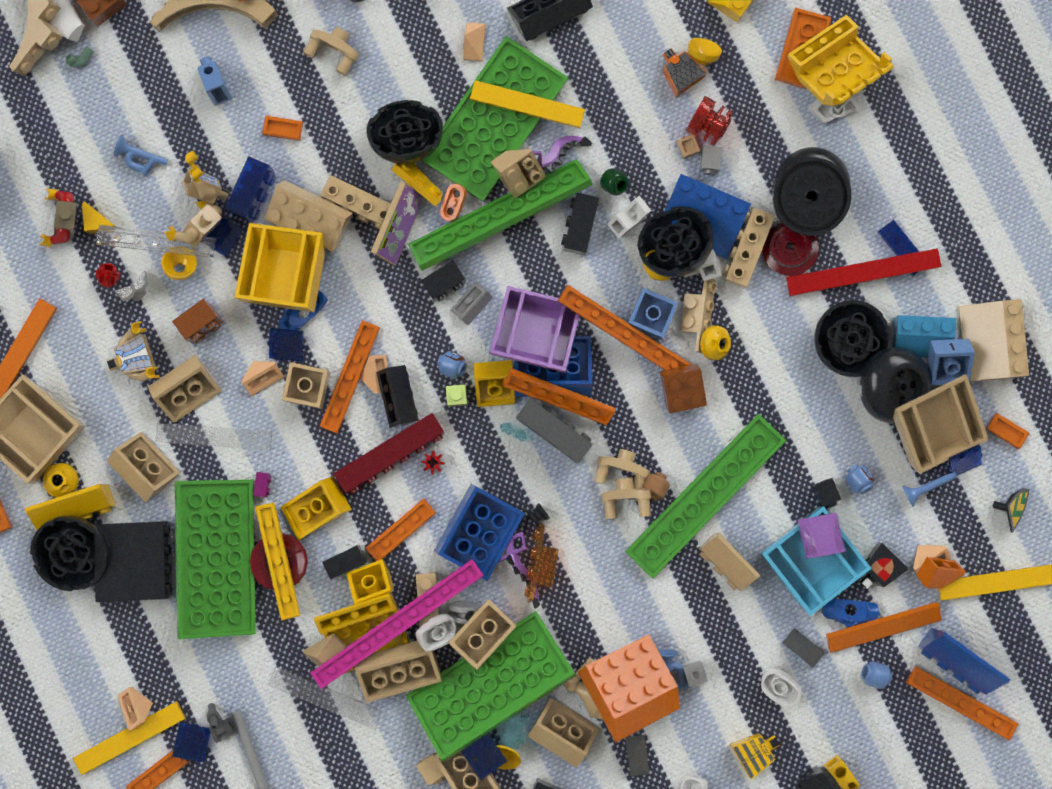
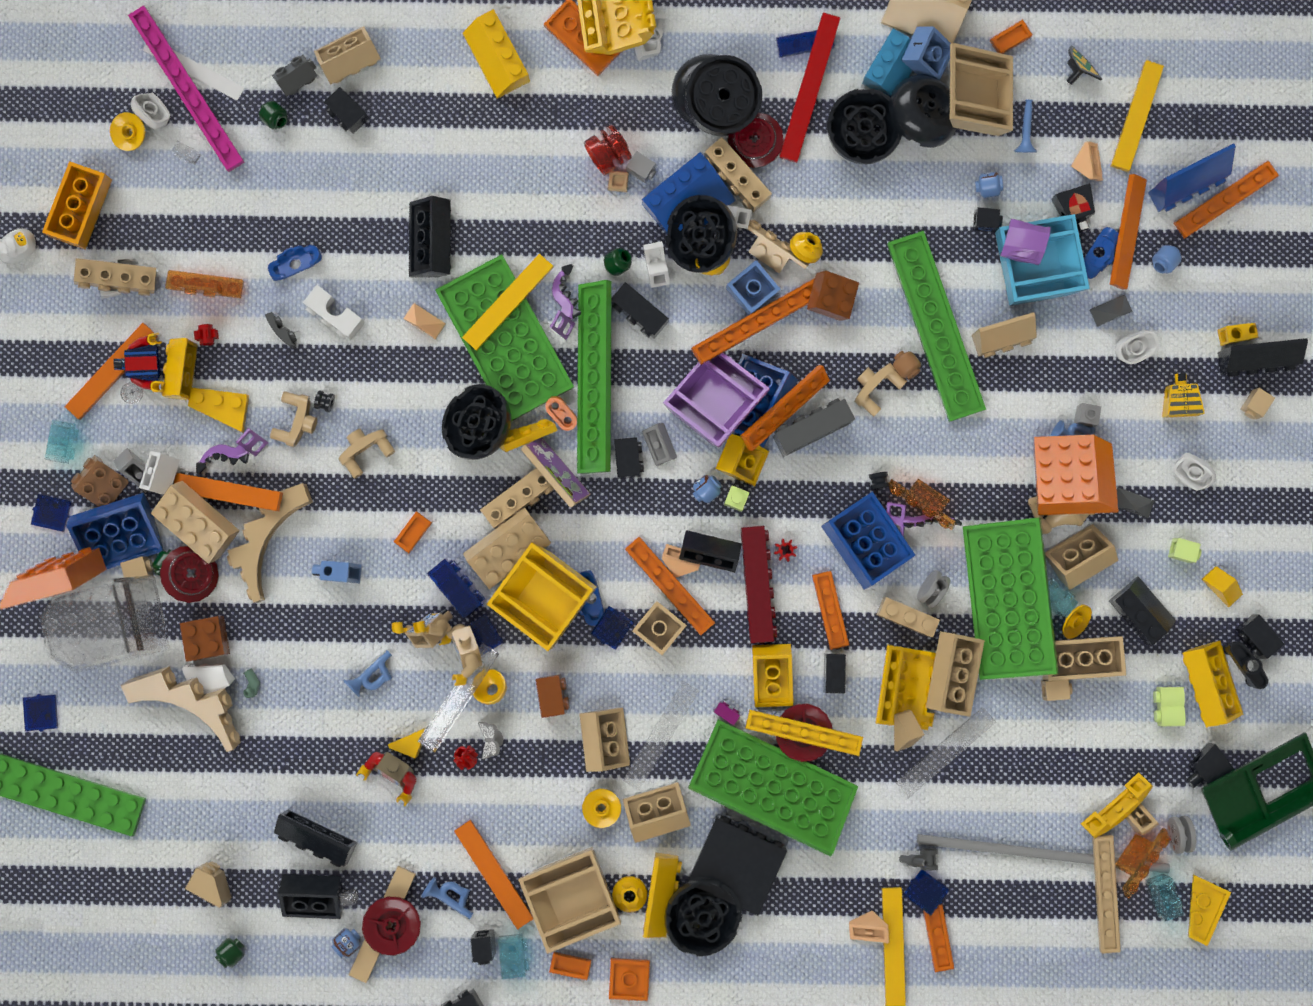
camera: 65 degrees left, 0 degrees up
(113, 416) = (599, 818): none -> yellow dish
(134, 355) = (552, 770): torso -> none
(260, 376) = (628, 664): light nougat slope -> none
(370, 581) = (865, 659): yellow slope -> none
(396, 624) = (916, 653): dark pink plate -> none
(436, 632) = (941, 621): white piece -> none
(482, 634) = (963, 582): tan slope -> none
(484, 756) = (1071, 635): clear blue piece -> none
(509, 430) = (789, 468): clear light blue piece -> none
(518, 170) = (564, 340): tan slope -> none
(626, 490) = (897, 393): tan connector -> none
(681, 71) = (548, 152): torso -> none
(704, 50) = (541, 123): yellow piece -> none
(939, 572) = (1105, 159): orange slope -> none
(965, 460) = (1020, 86): clear blue piece -> none

